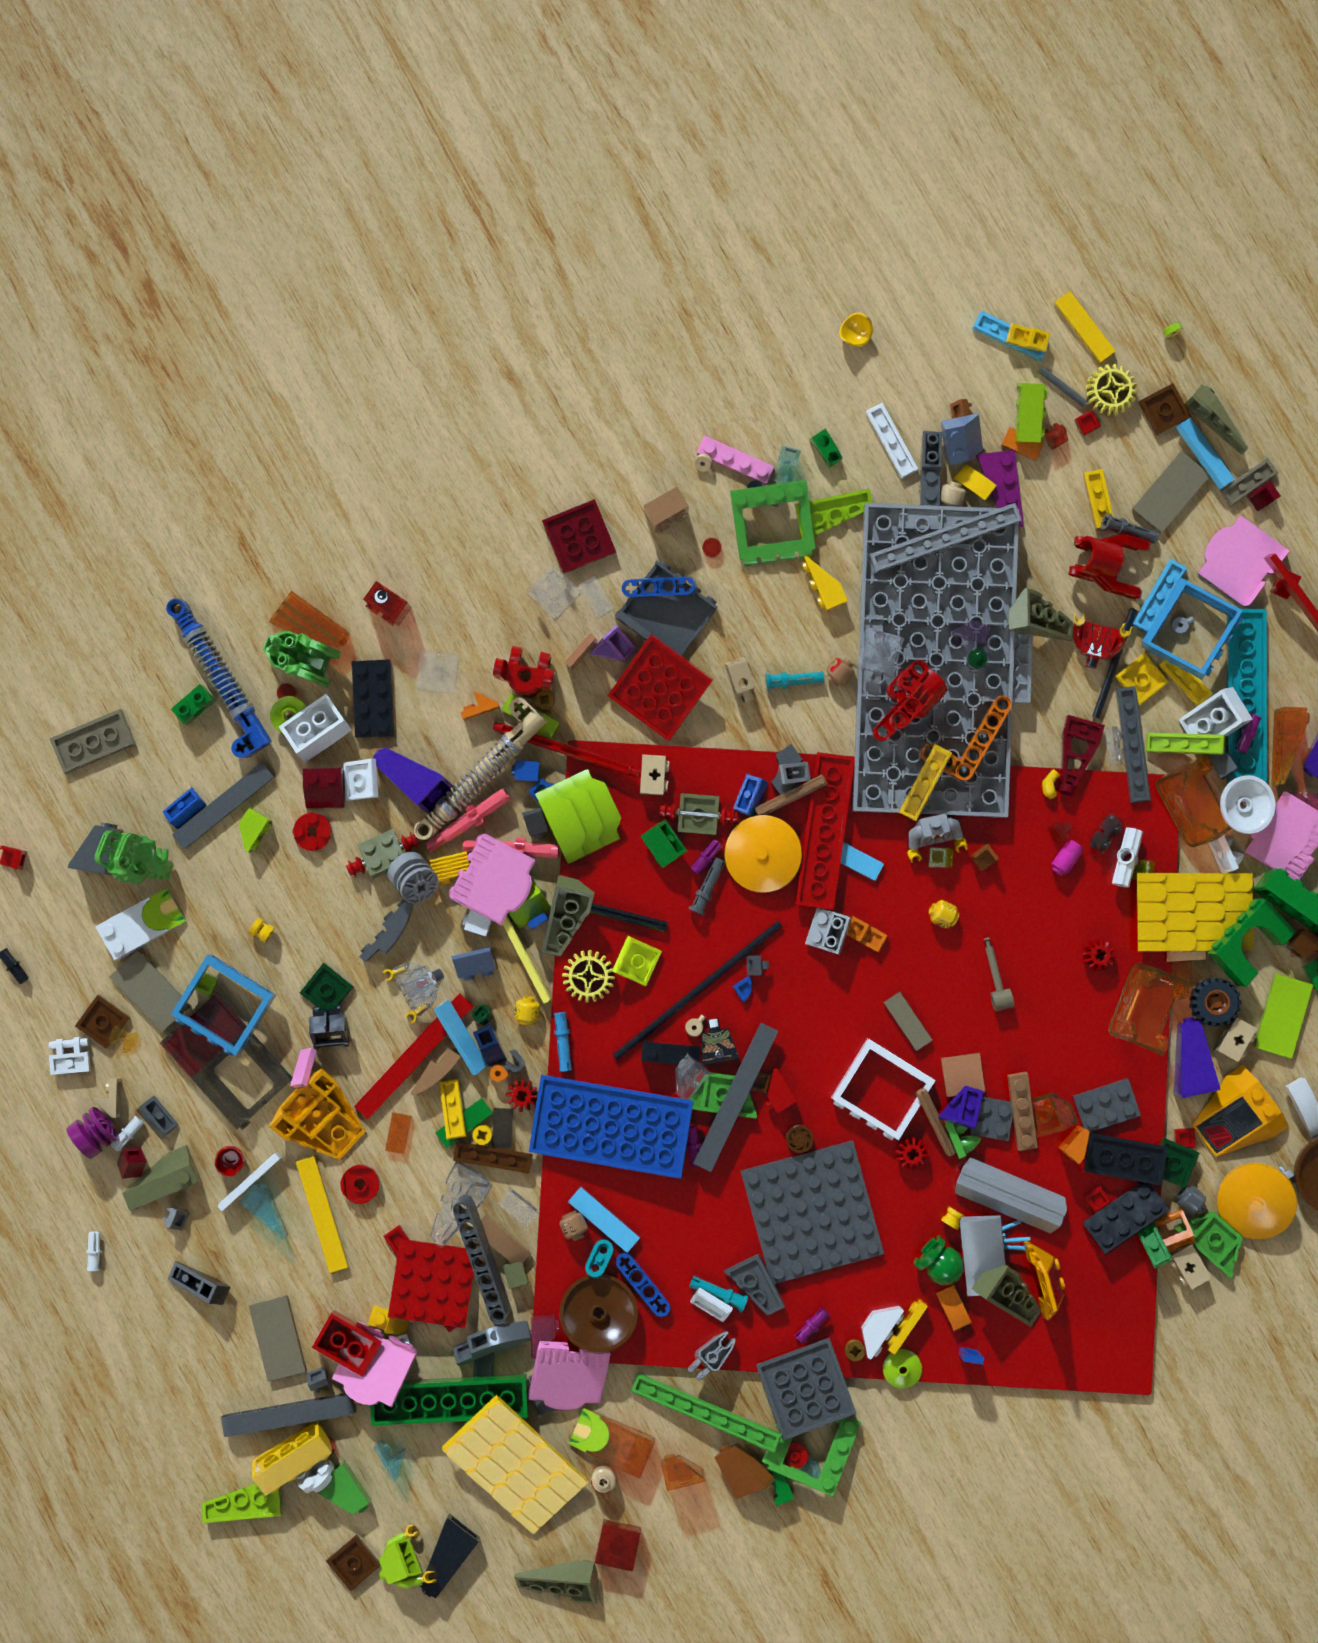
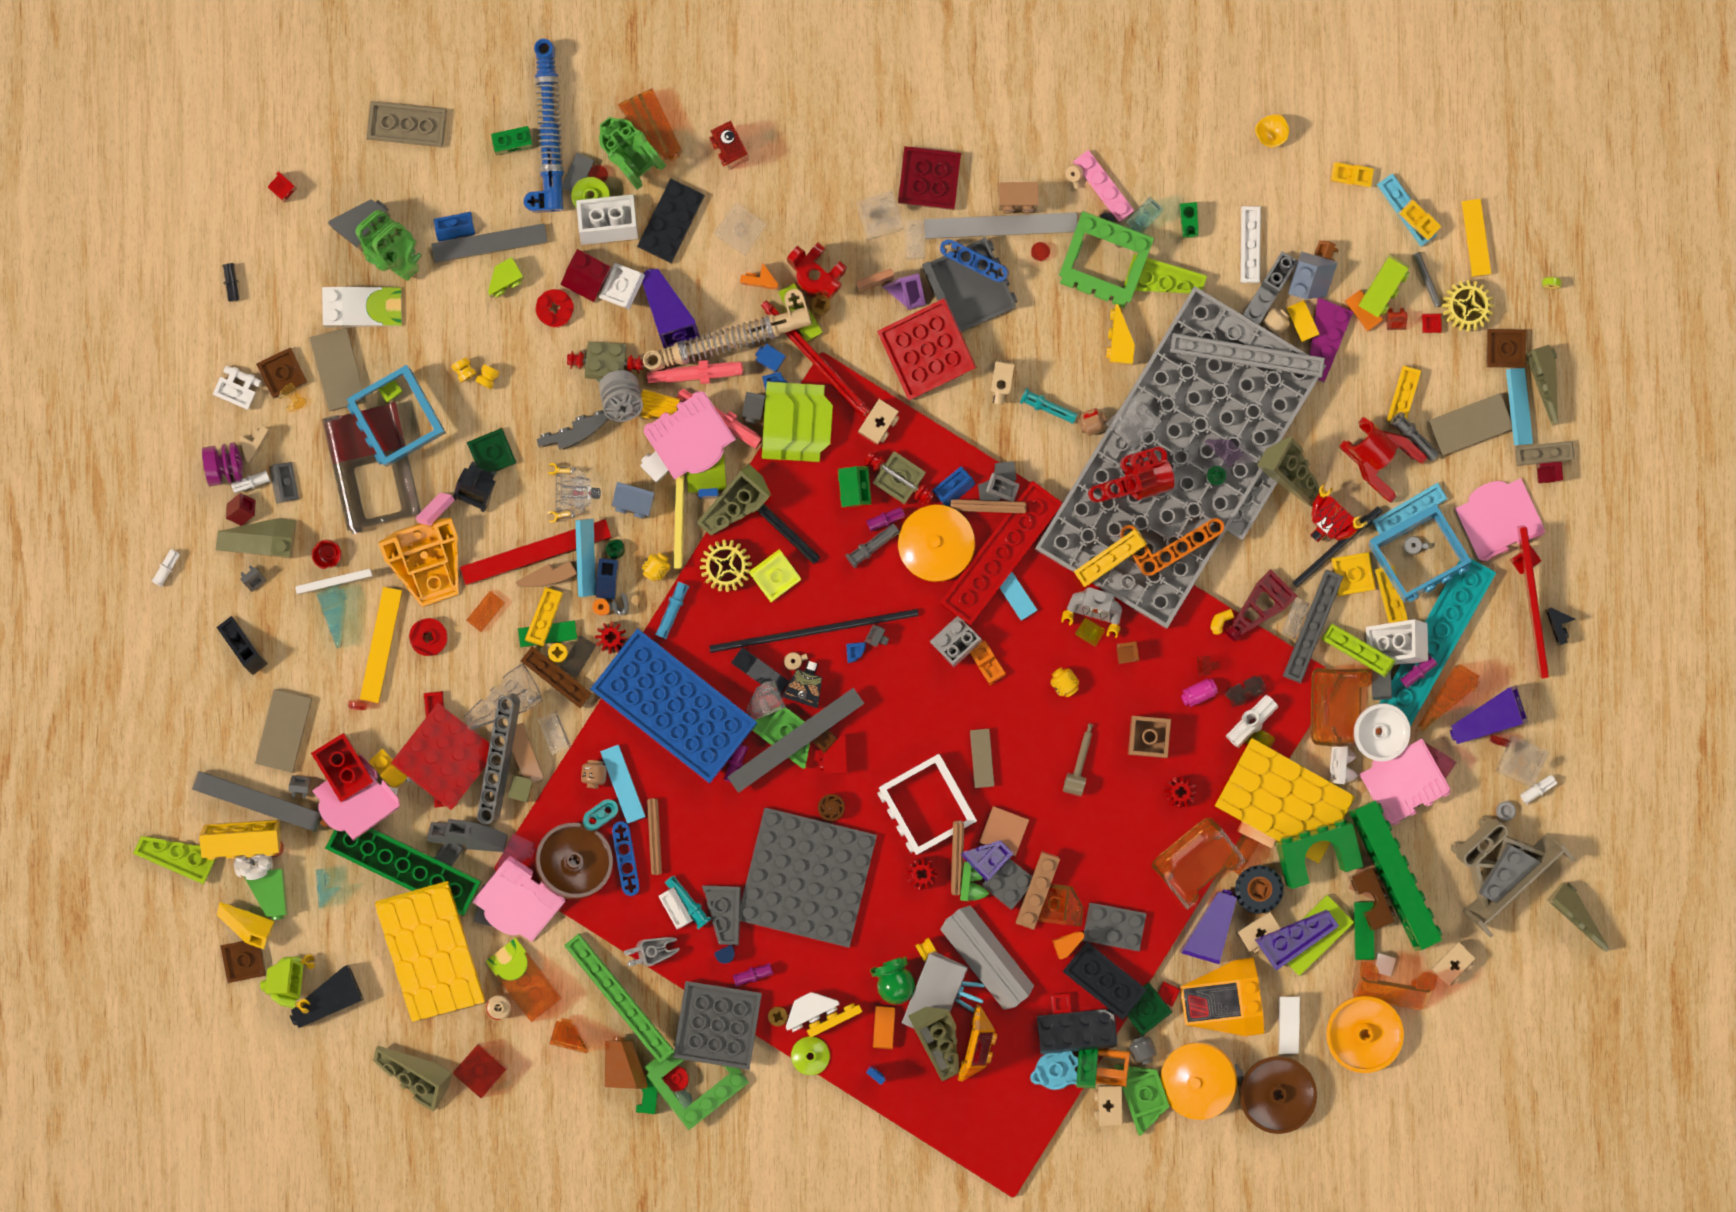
camera: 25 degrees right, 0 degrees up
(266, 698) = (579, 169): none -> dark grey tile
(286, 923) = (487, 377): none -> yellow wheel
(330, 1279) = (357, 705): none -> clear red tile
(343, 1531) = (248, 926): none -> yellow slope
(657, 1250) = (654, 836): none -> medium nougat axle
(664, 544) = (1000, 225): none -> light grey tile
(778, 1321) = (725, 954): none -> dark blue brick
(946, 331) = (1352, 175): none -> yellow slope
(1045, 921) = (1149, 736): none -> medium nougat brick
(1126, 1262) = (1055, 1070): none -> medium azure tile
(1271, 1029) = (1295, 938): none -> wing

